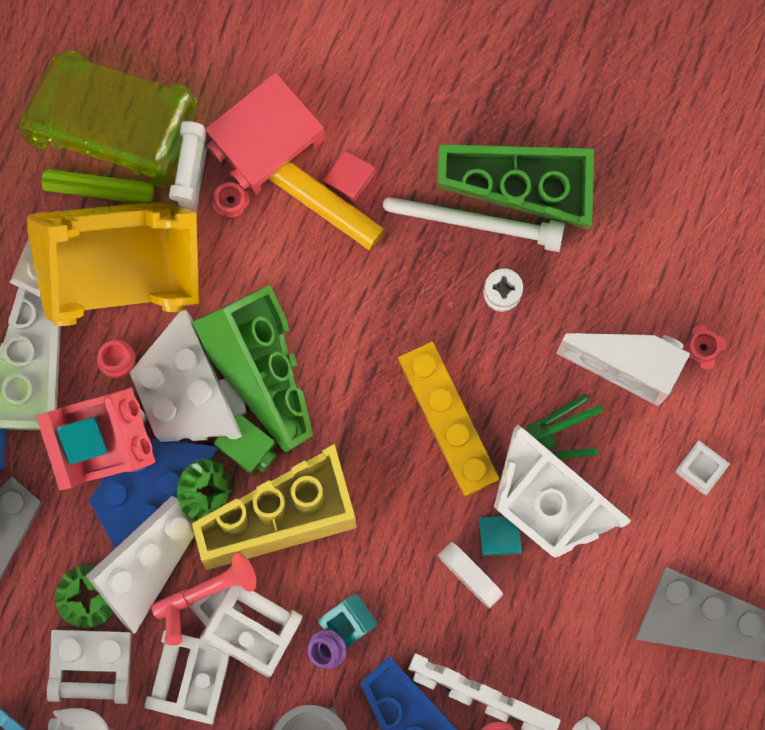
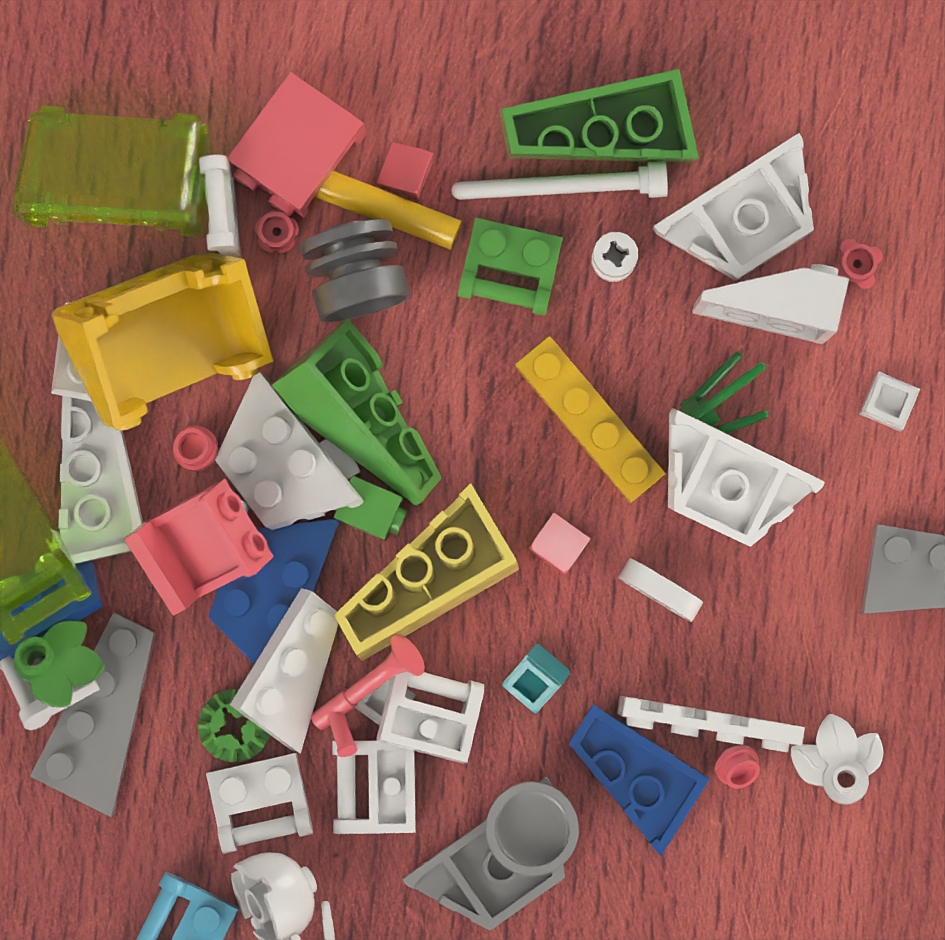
camera: 15 degrees left, 5 degrees up
(82, 440) = (184, 552): teal slope -> none
(97, 186) = (120, 255): lime axle -> none
(199, 475) = (324, 559): bright green gear -> none
(284, 241) = (352, 261): none -> flat silver wheel
(319, 652) = (521, 724): medium lavender plate -> none
(395, 515) = (559, 544): none -> coral slope
(420, 265) = (512, 252): none -> bright green plate
(499, 536) = (681, 538): teal slope -> none
(622, 283) = (747, 214): none -> white wing

